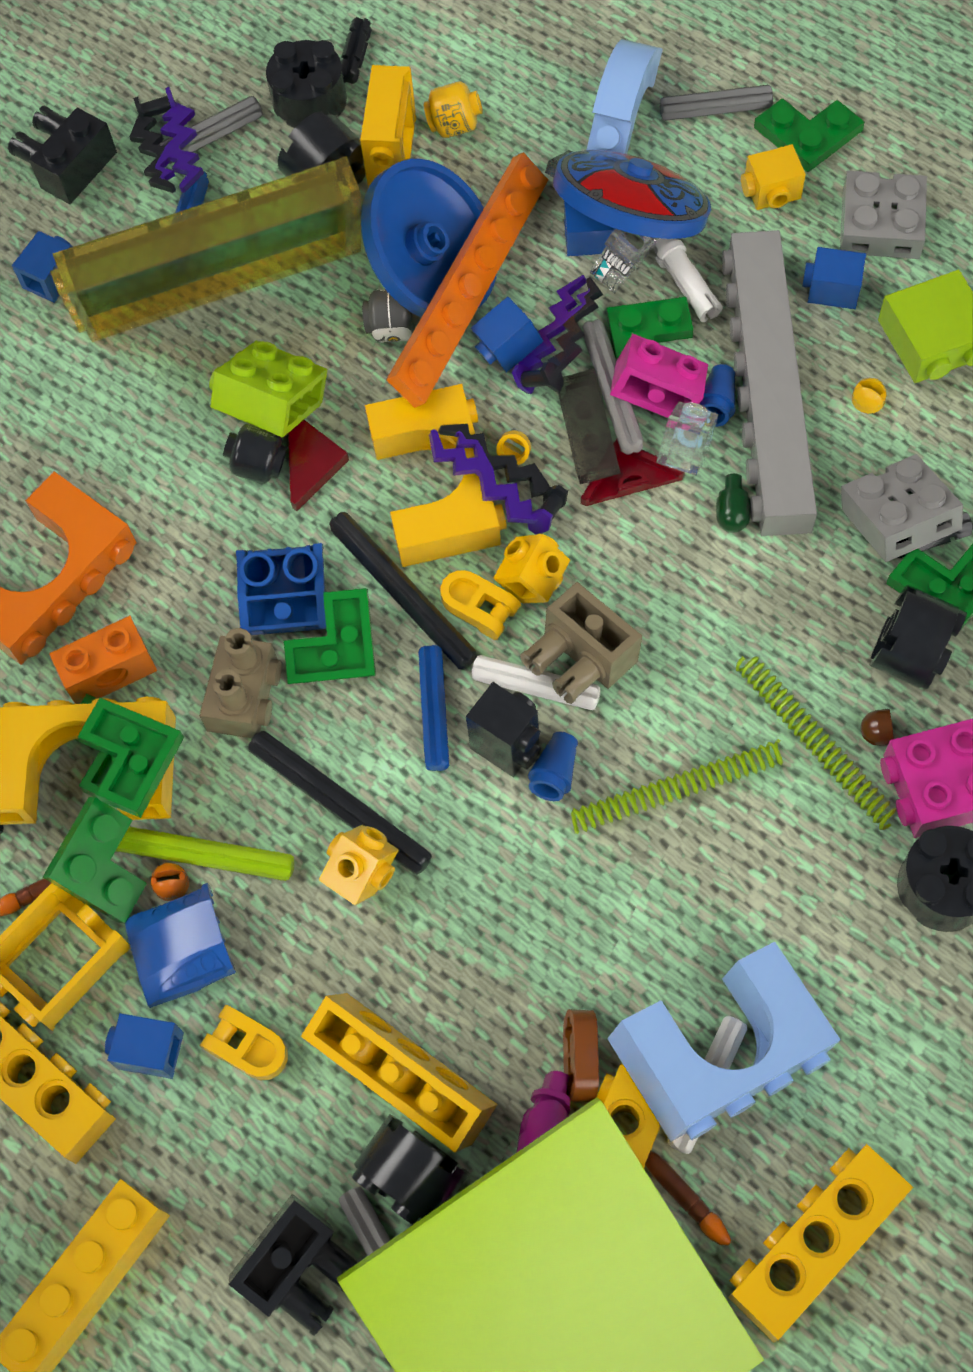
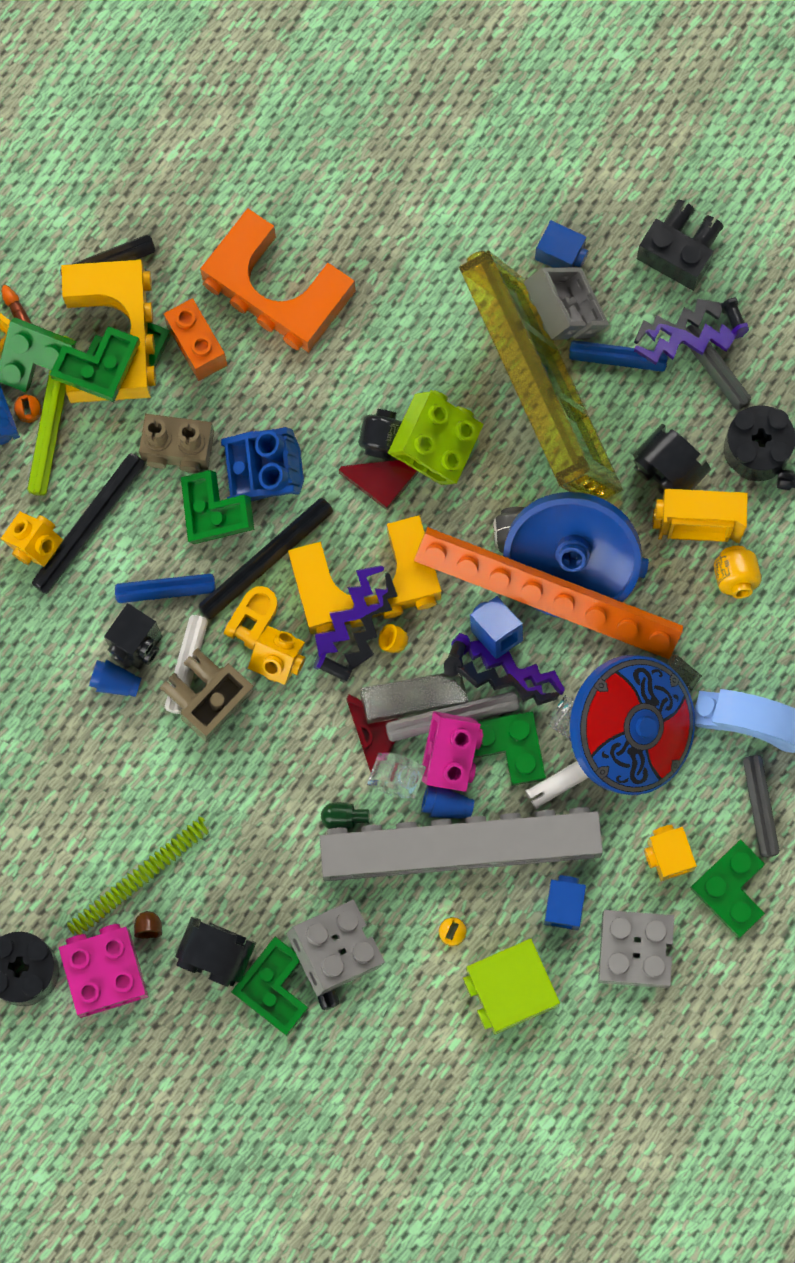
camera: 85 degrees right, 10 degrees up
(657, 788) = (96, 775): lime piece -> none

